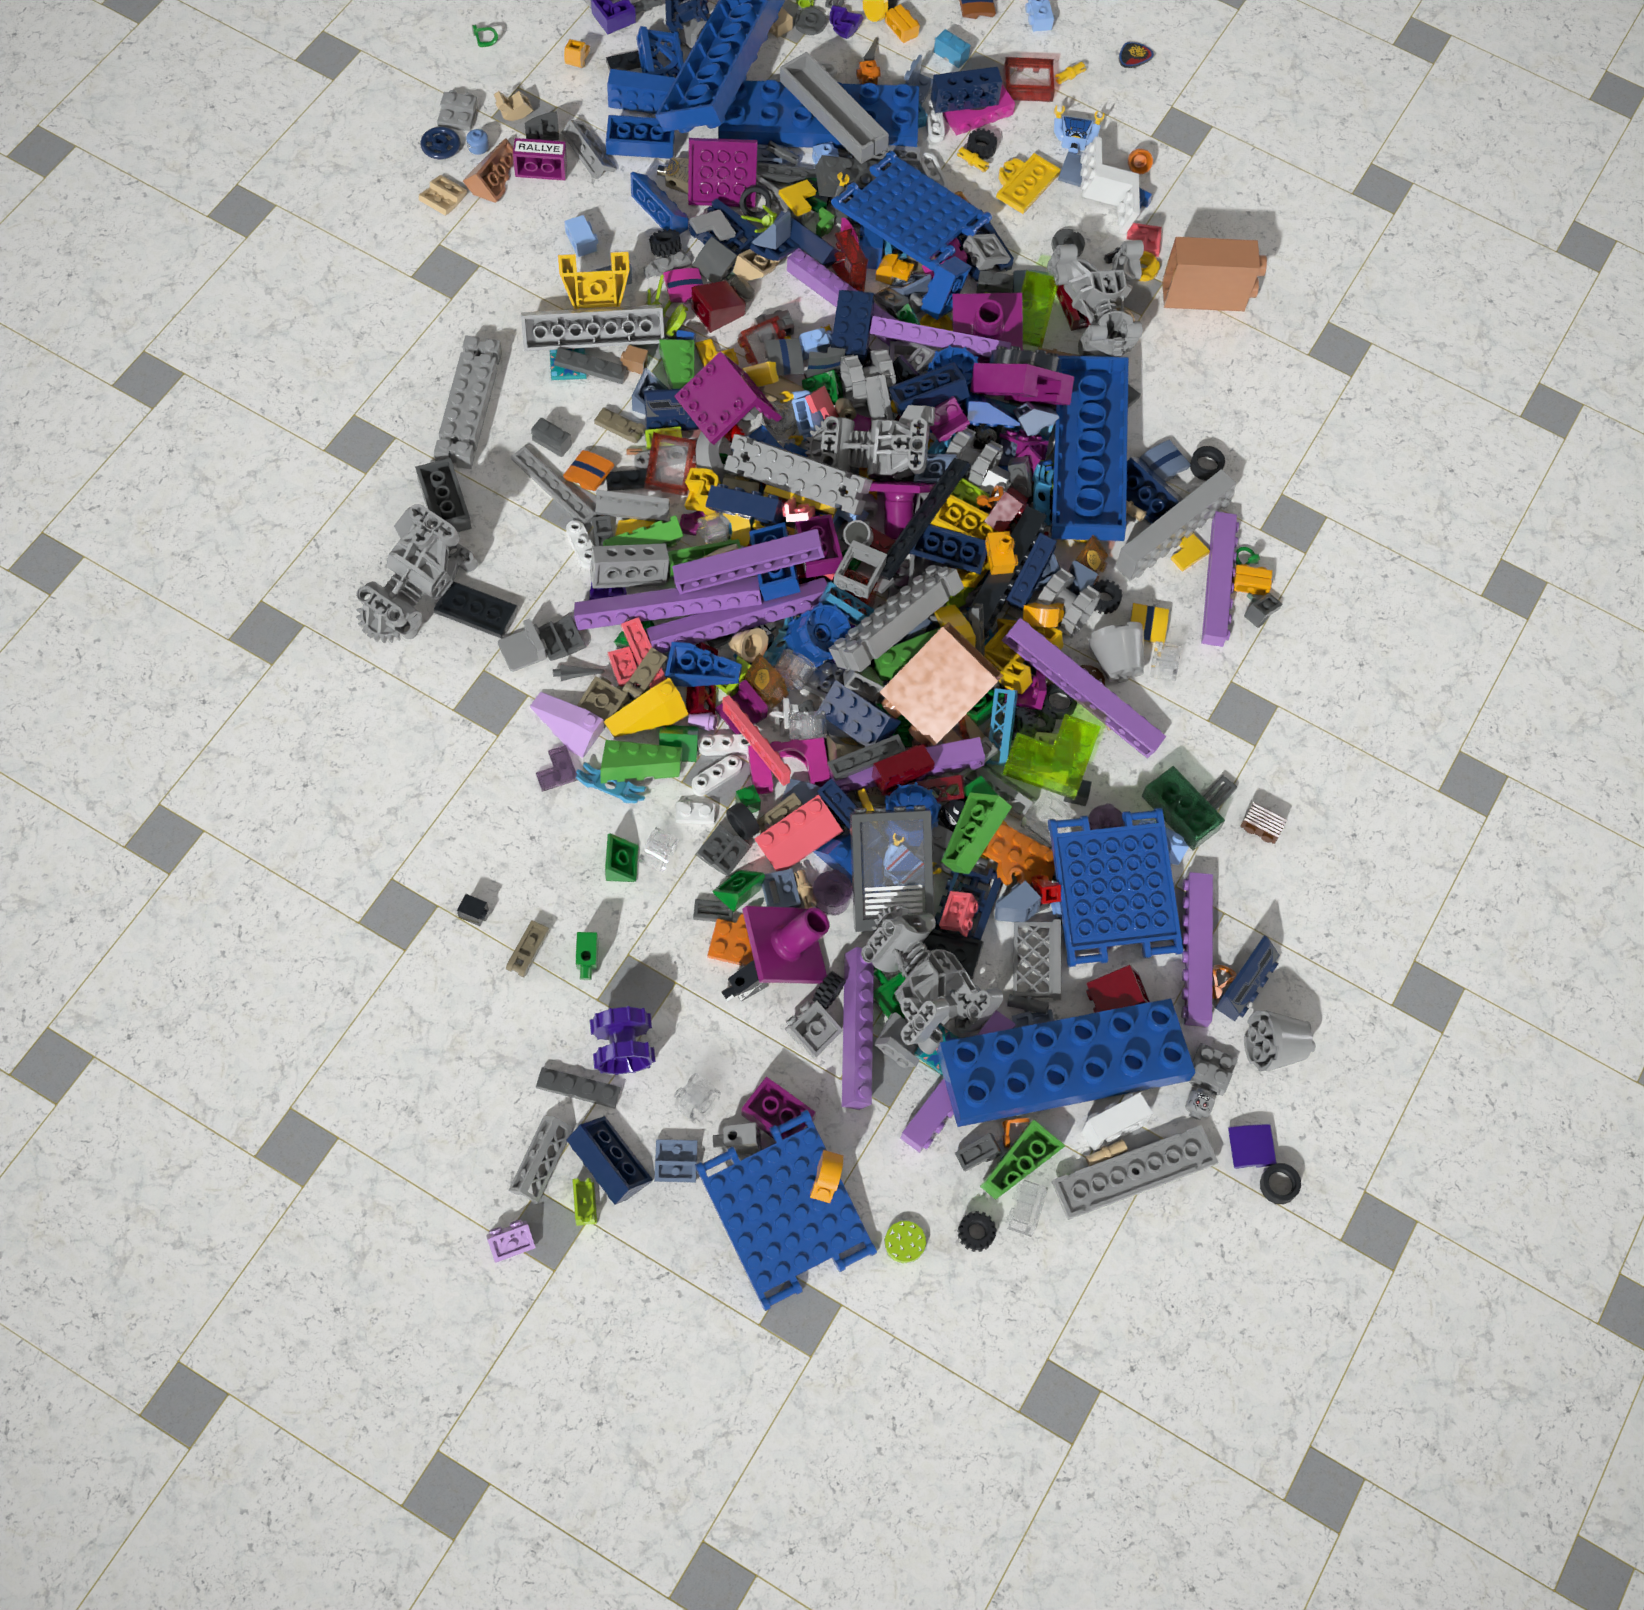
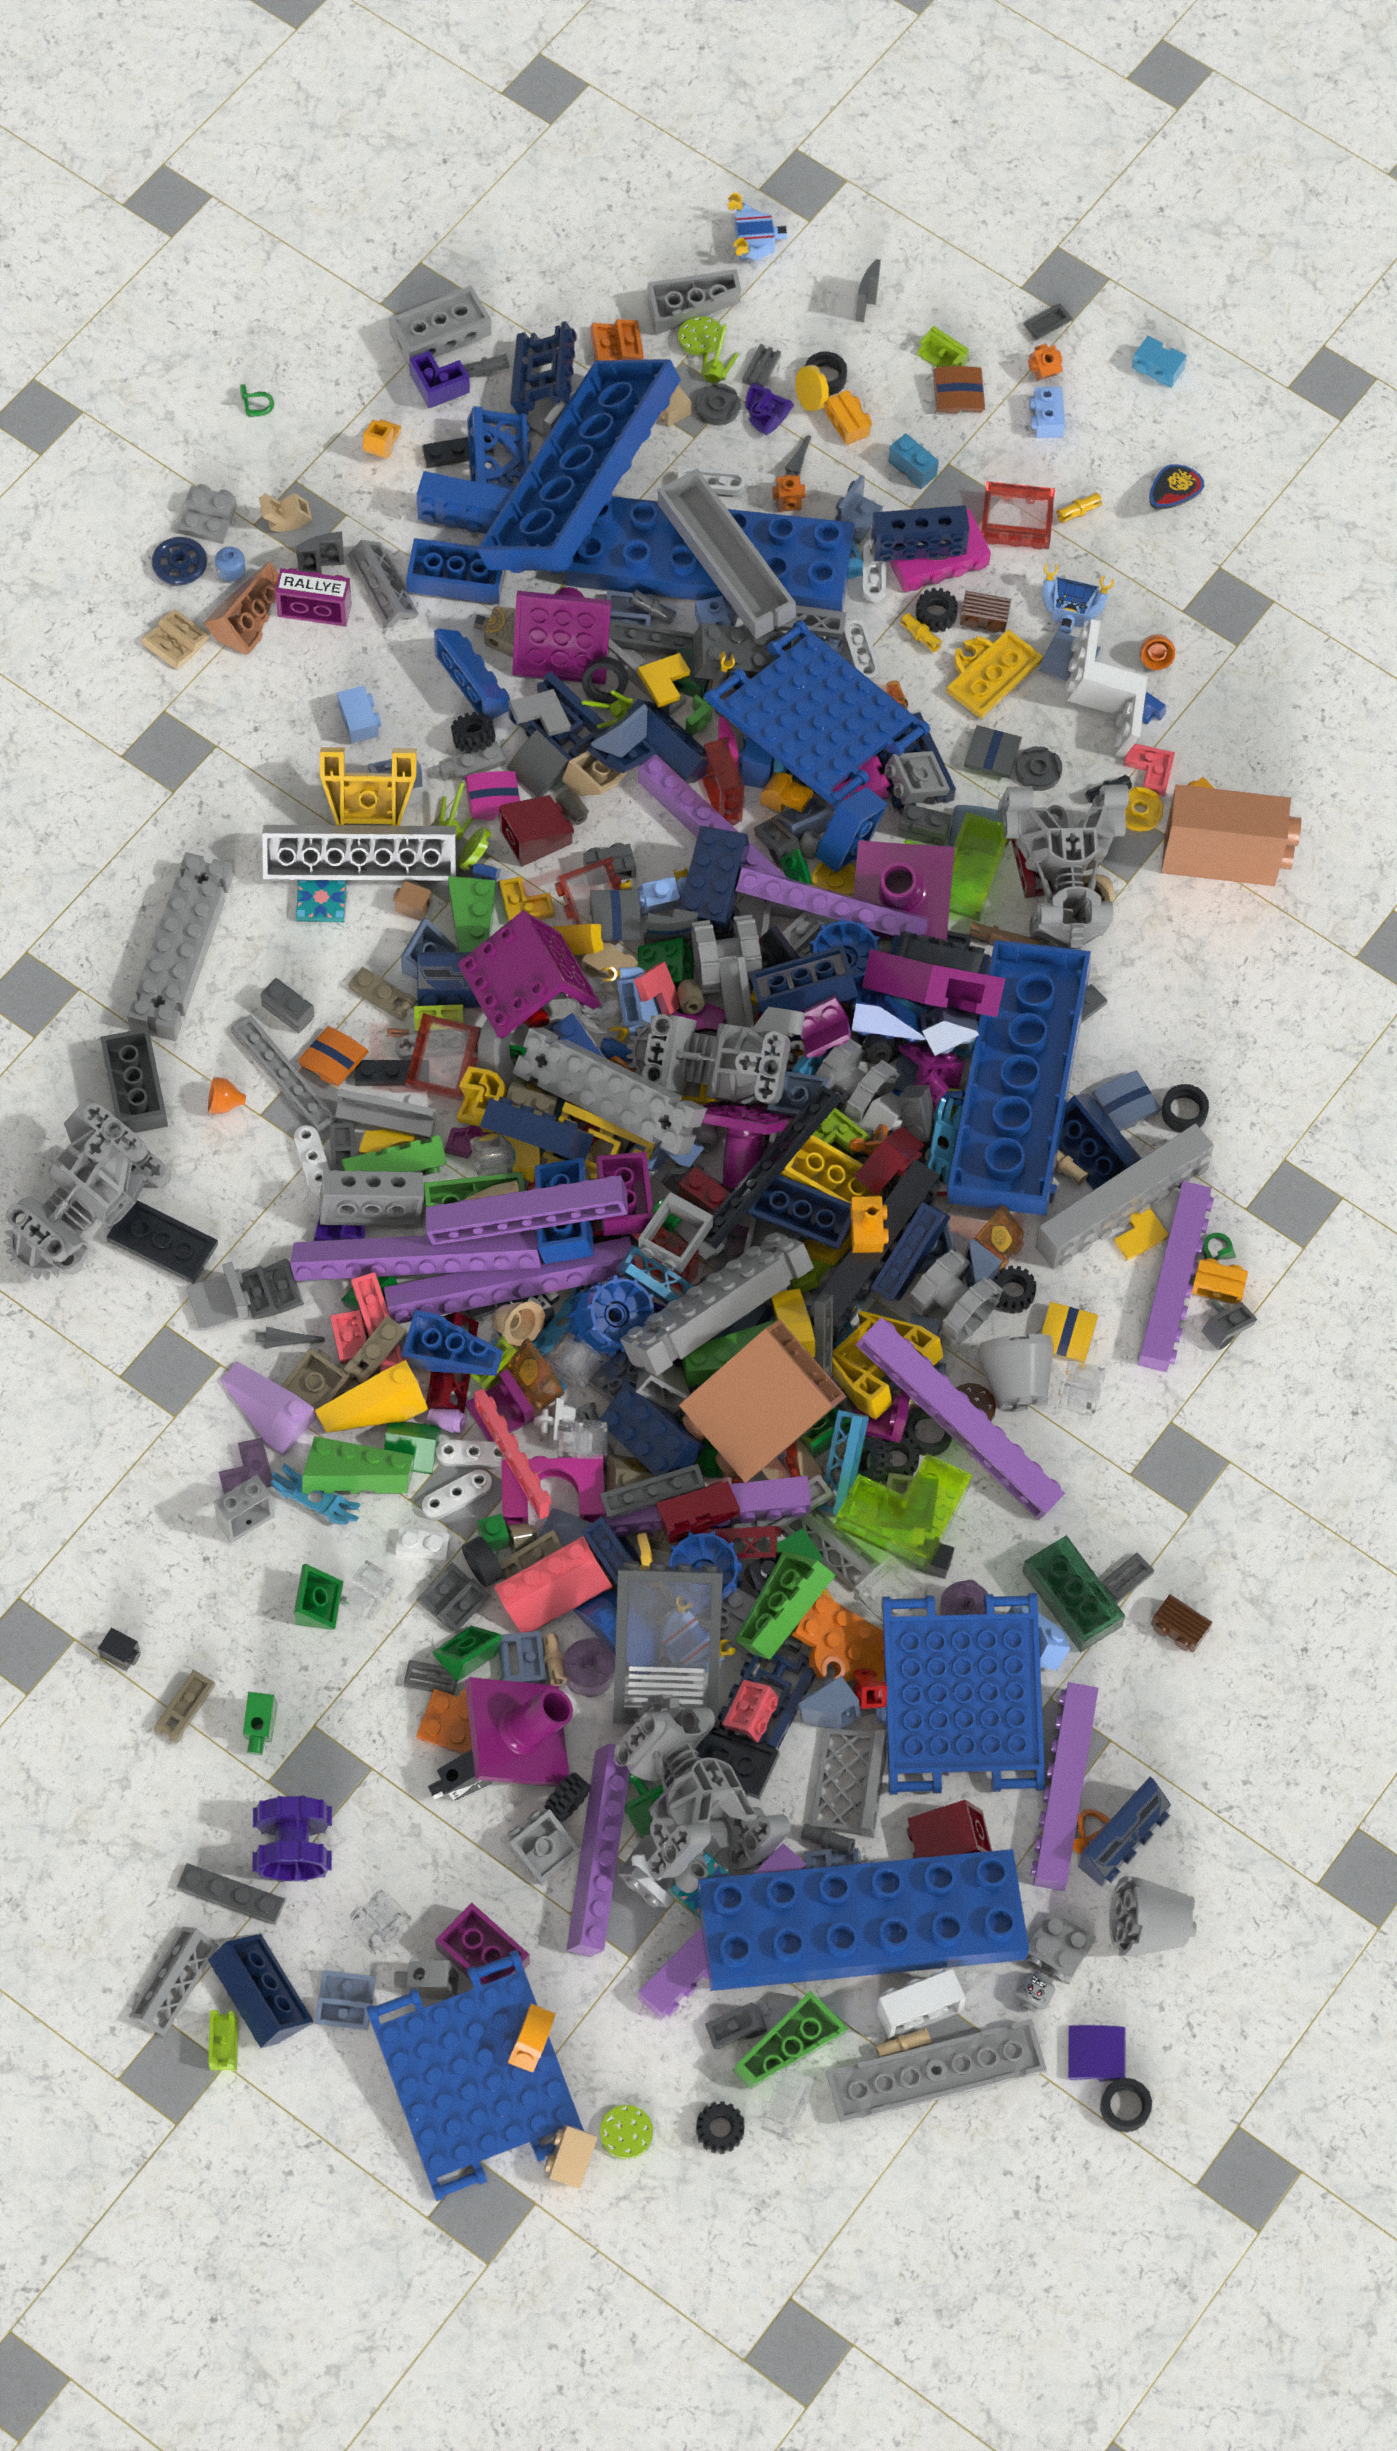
camera: 10 degrees right, 0 degrees up
(510, 1240) = (124, 2080): lavender bracket -> none
(511, 503) = (224, 1096): none -> orange helmet
(550, 800) = (233, 1514): none -> light grey window
(590, 365) = (350, 905): dark grey plate -> none
(769, 800) = (520, 1535): none -> dark tan hat
(794, 513) = (599, 1146): coral bracket -> none
(859, 532) = (680, 1181): pearl dark grey piece -> none
(866, 1265) = (570, 2156): none -> tan brick
(1006, 1126) = (775, 2009): orange piece -> none
(1016, 142) = (985, 611): none -> reddish brown brick
(1034, 234) = (992, 751): none -> dark grey slope
(1043, 615) = (918, 1314): light orange brick -> none

